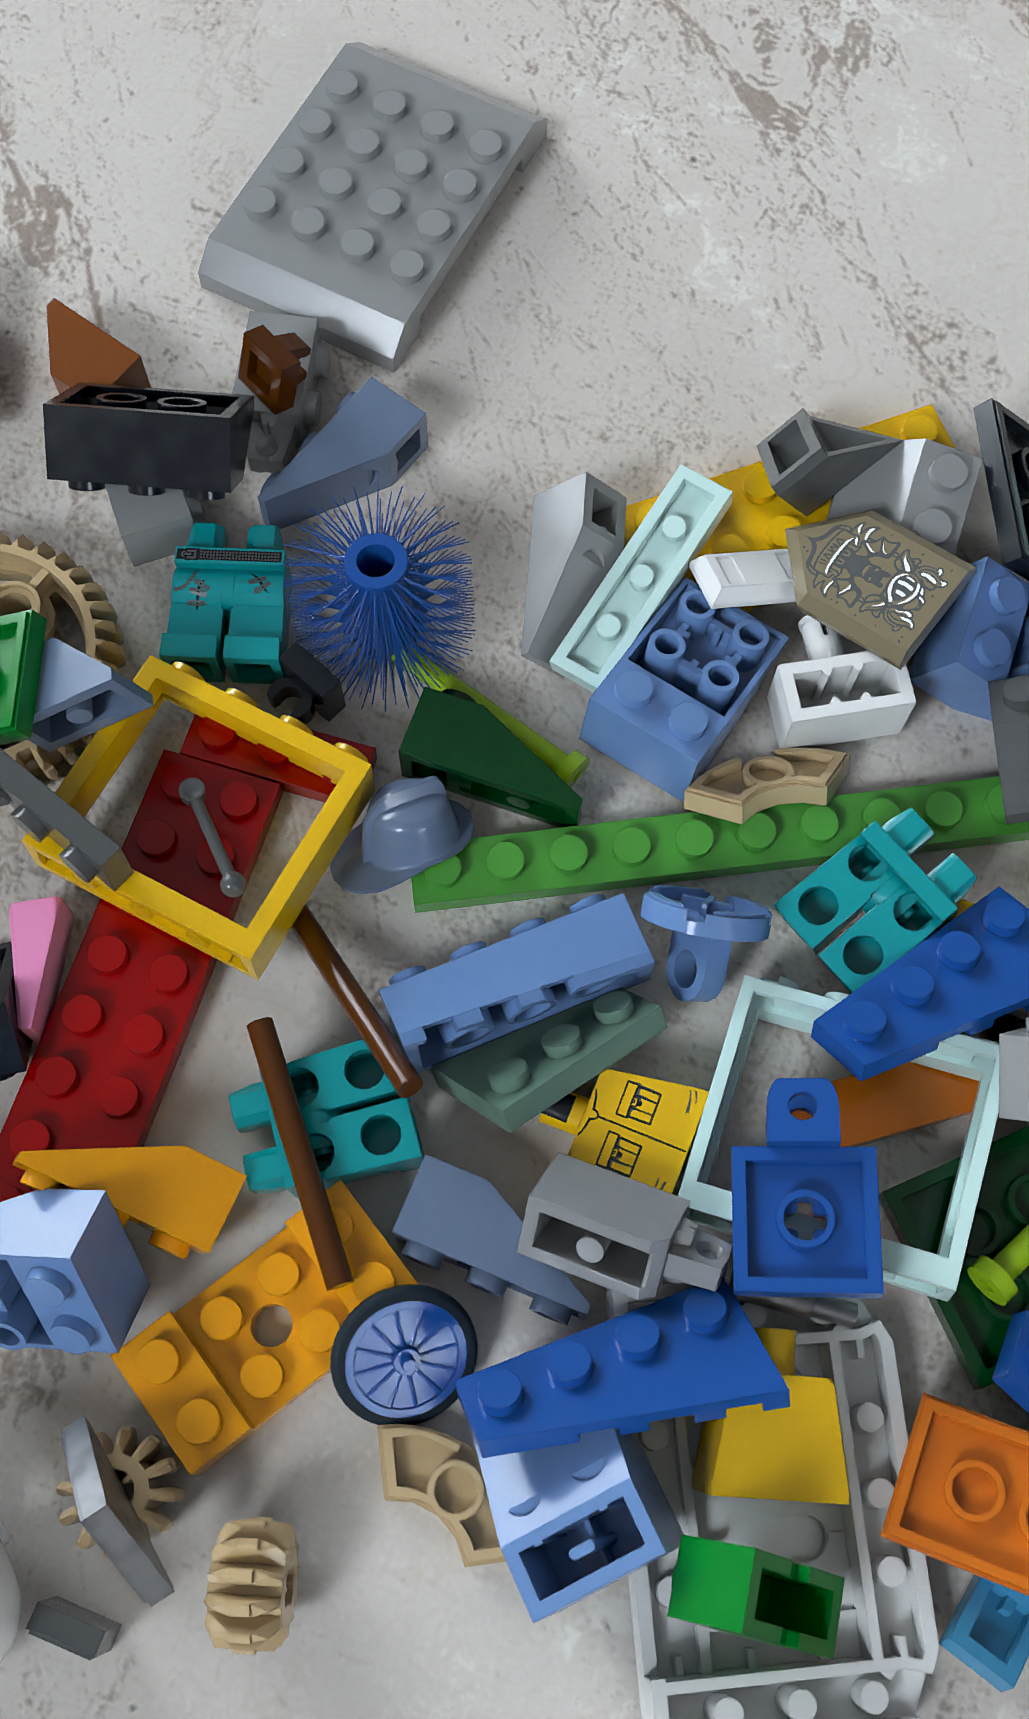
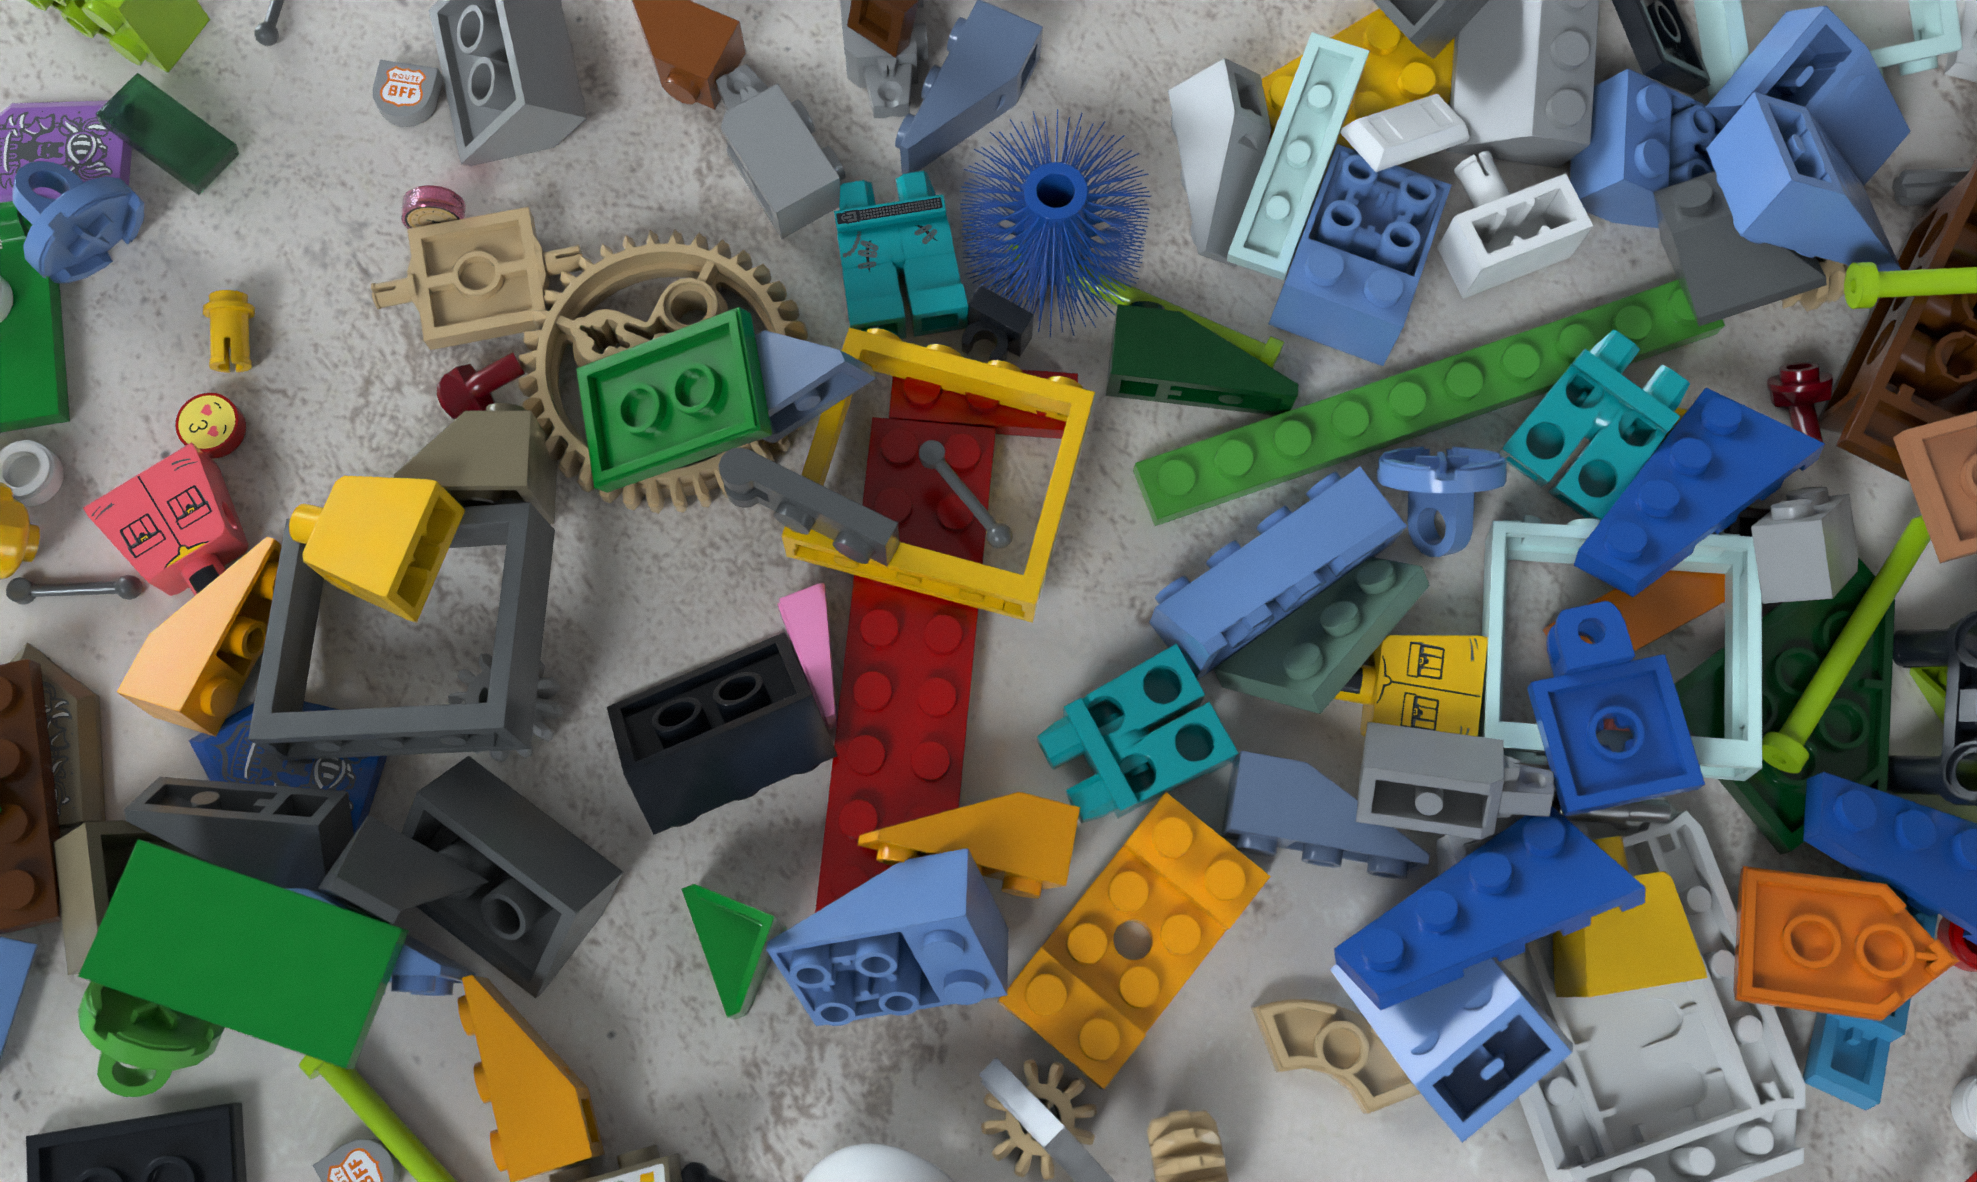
camera: 15 degrees left, 5 degrees up
(147, 439) = (783, 107): black slope -> none
(300, 1154) = (1127, 775): reddish brown bar -> none
(357, 1005) = (1139, 625): reddish brown bar -> none
(402, 1355) = (1266, 938): wheel -> none
(403, 833) = (1130, 456): sand blue piece -> none
(756, 1596) = (1649, 1074): green brick -> none
(789, 776) = (1477, 322): tan tile -> none
(874, 581) = (1527, 114): dark tan tile -> none

